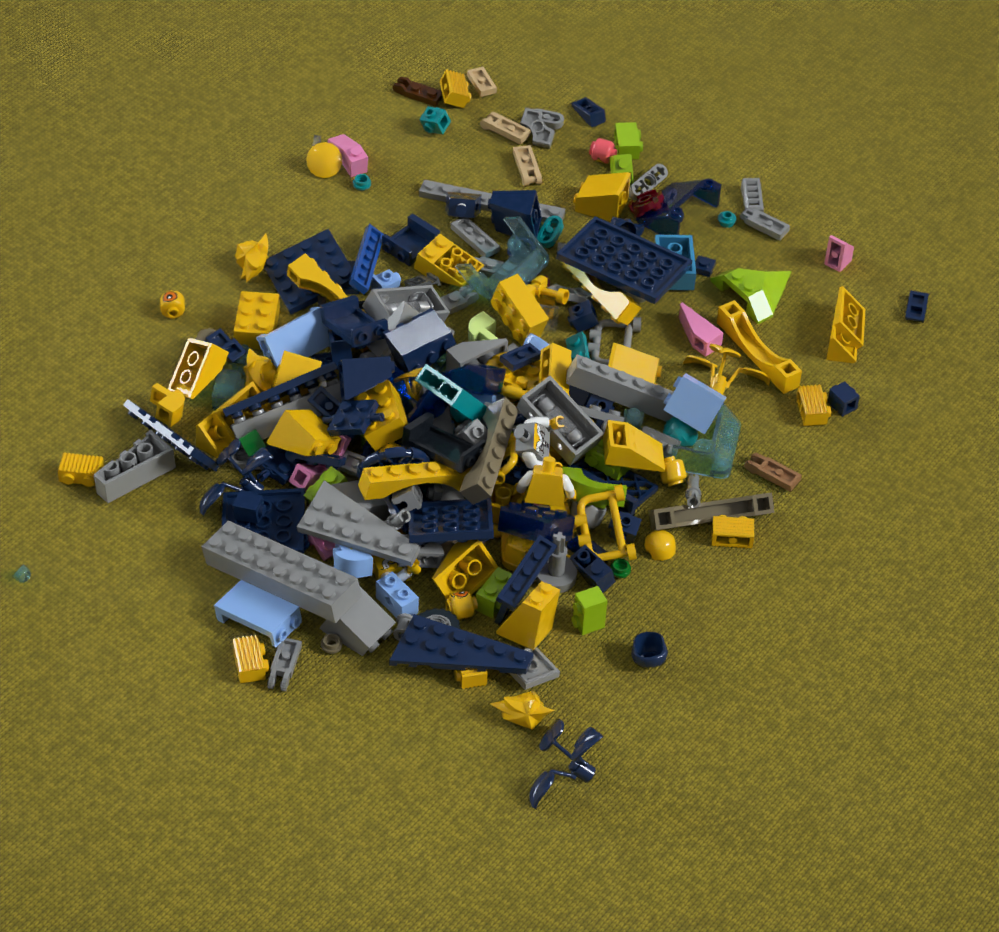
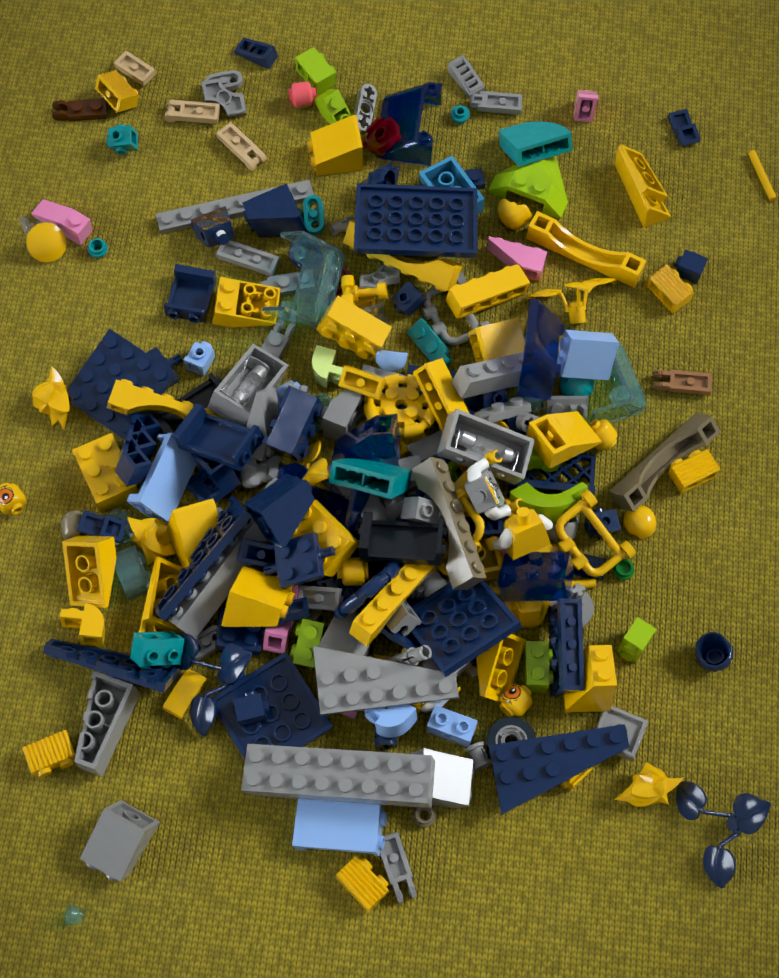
camera: 30 degrees left, 20 degrees up
(89, 542) = (119, 840): none -> light grey slope
(203, 482) = (183, 693): none -> yellow slope
(207, 436) = (157, 649): none -> teal brick
(252, 442) = (203, 629): green tile -> none
(288, 307) = (137, 448): none -> dark blue brick
(366, 259) = (168, 344): blue plate -> none
(420, 280) = (236, 341): dark grey plate -> none
(495, 339) = (361, 382): none -> yellow slope
(520, 357) = (396, 387): dark blue plate -> none
(593, 568) = (606, 588): dark blue slope -> none
(650, 377) = (540, 352): none -> clear blue windscreen
(652, 337) = (487, 291): none -> yellow brick
(693, 491) = (639, 451): light grey pin -> none
(714, 297) = (513, 215): none -> yellow hair
(773, 257) = (534, 141): none -> teal brick
(961, 368) = (762, 175): none -> yellow bar

